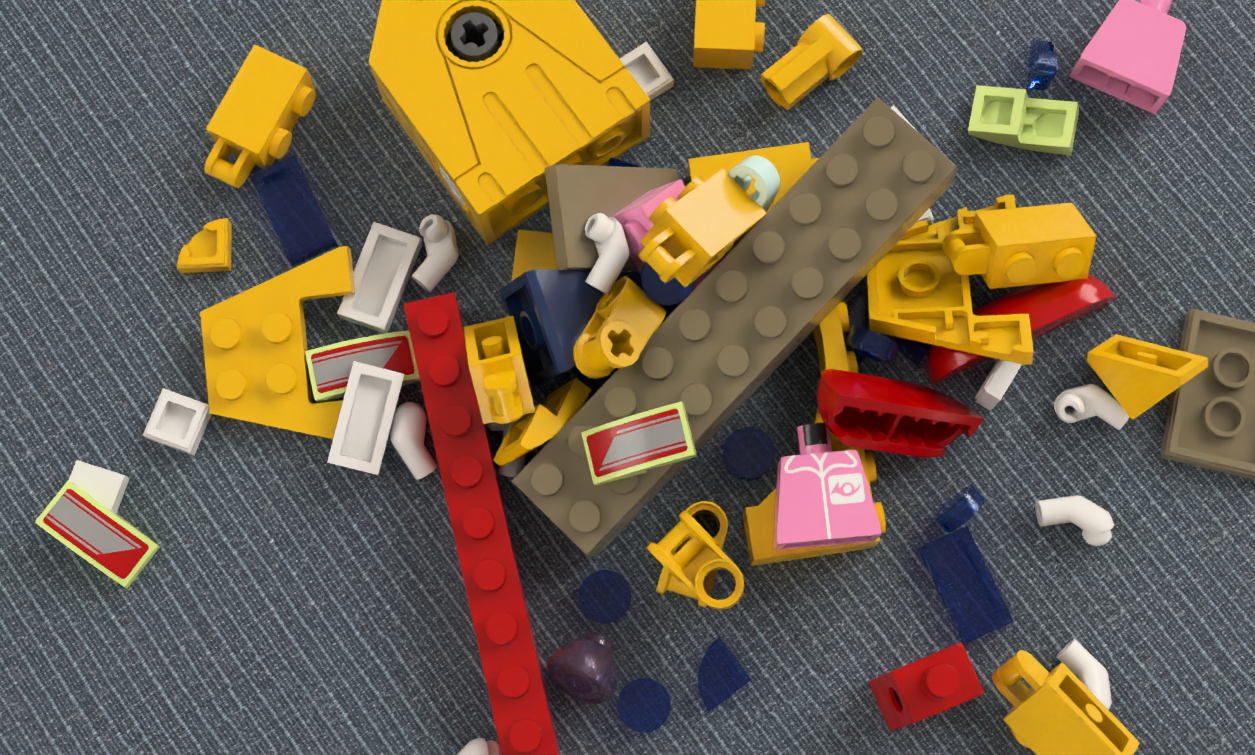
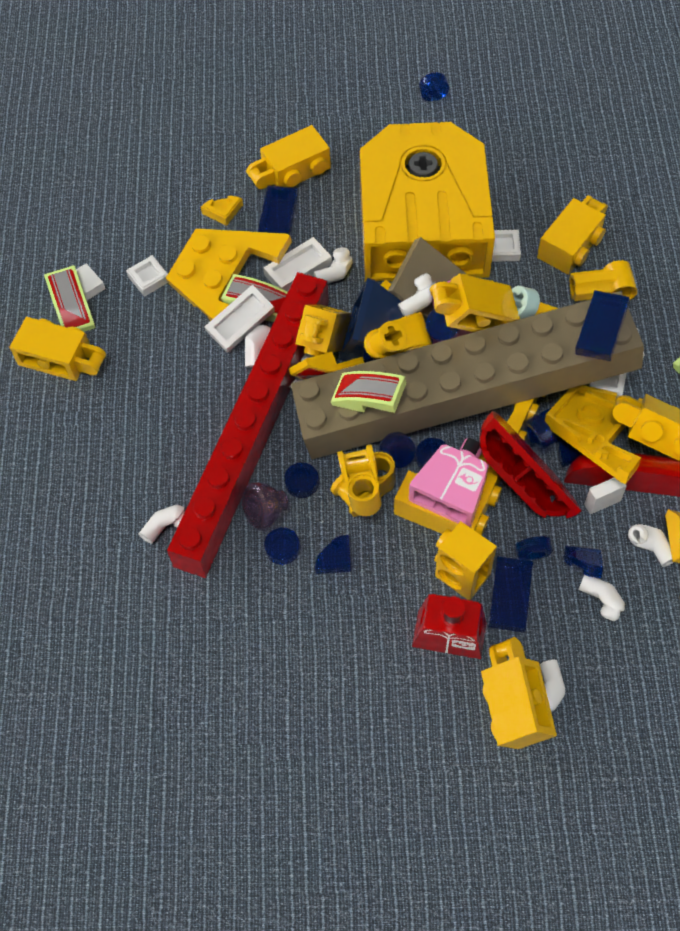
camera: 35 degrees right, 15 degrees down
(136, 621) = (55, 349): none -> yellow brick
(704, 478) = (399, 447): none -> clear blue tile
(892, 171) = (602, 325): none -> clear blue tile
(895, 589) = (464, 559): none -> yellow brick
(1028, 483) = (585, 558): none -> clear blue tile

